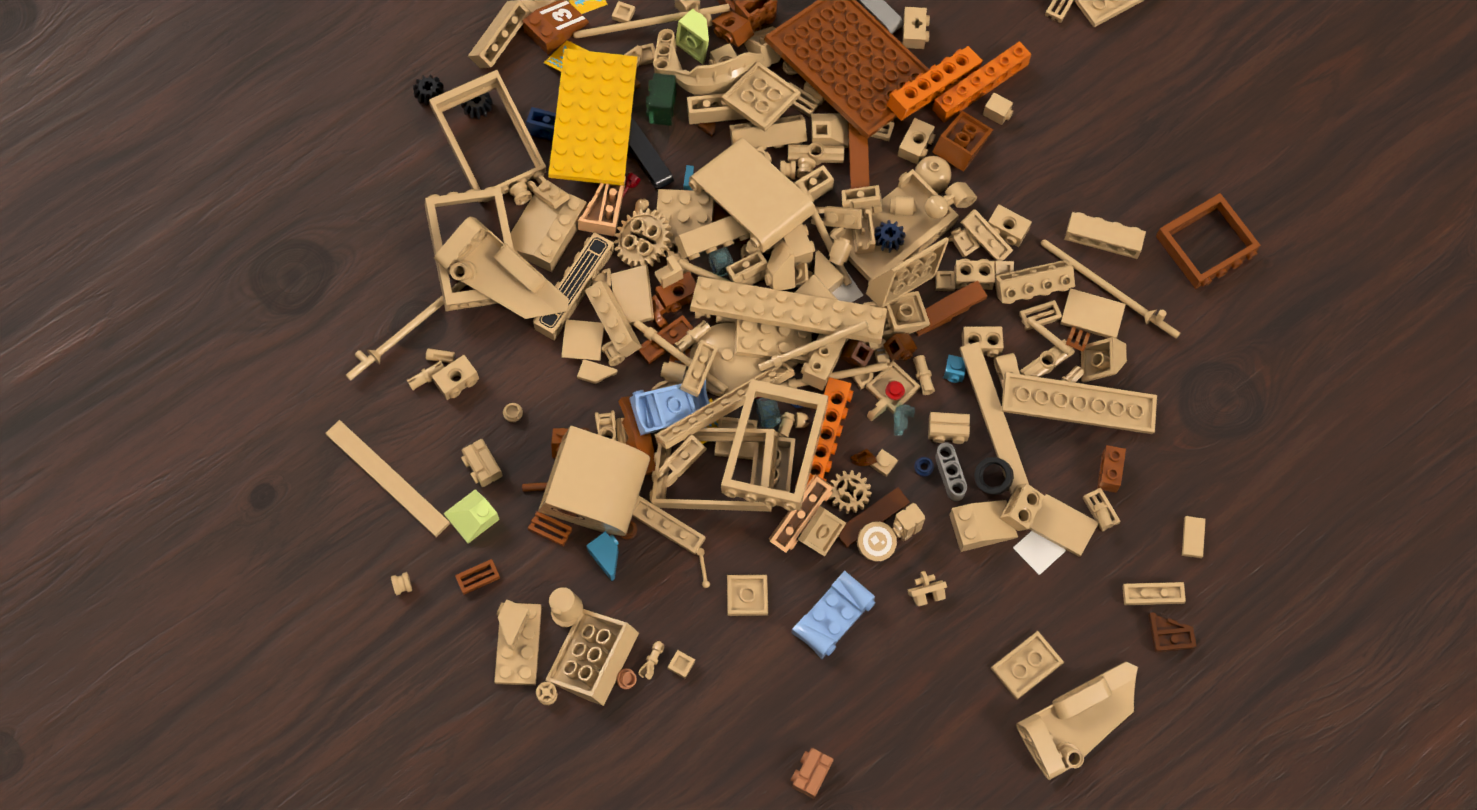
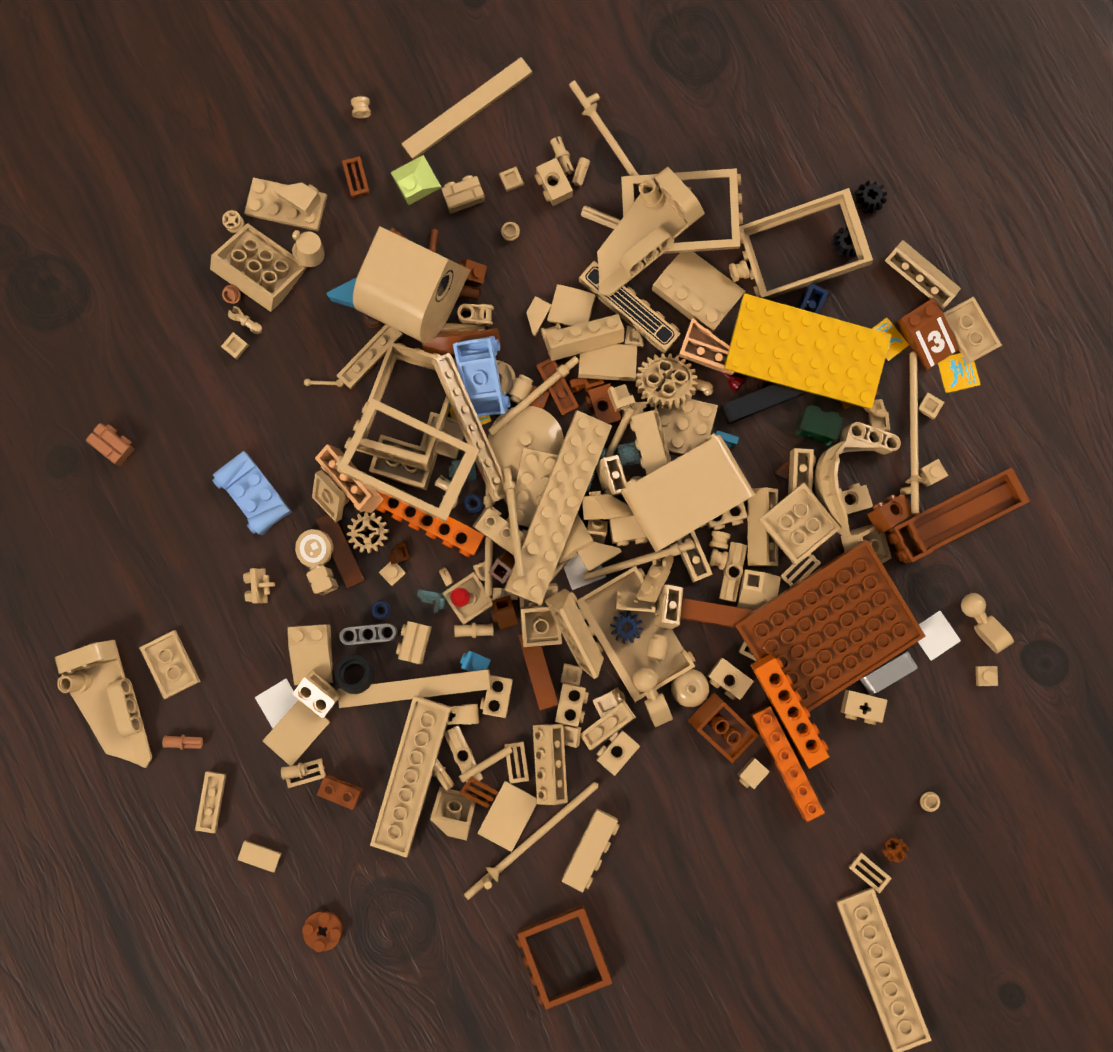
camera: 105 degrees right, 15 degrees up
(457, 421) = (511, 179): none -> tan tile
(485, 327) = (600, 217): none -> tan axle
(548, 192) = (730, 295): tan hinge -> none
(681, 460) = (421, 375): tan hinge -> none
(692, 336) = (552, 411): tan pin -> none
(693, 35) = (890, 470): yellowish green slope -> none
(699, 368) = (513, 408): tan tile -> none
(747, 595) = (289, 418): tan tile -> none
(840, 251) = (612, 571): tan brick -> none
(1102, 634) = (182, 742): none -> nougat axle
(1170, 635) = (168, 807): reddish brown wing -> none
(1255, 456) = (333, 934): none -> dark orange plate

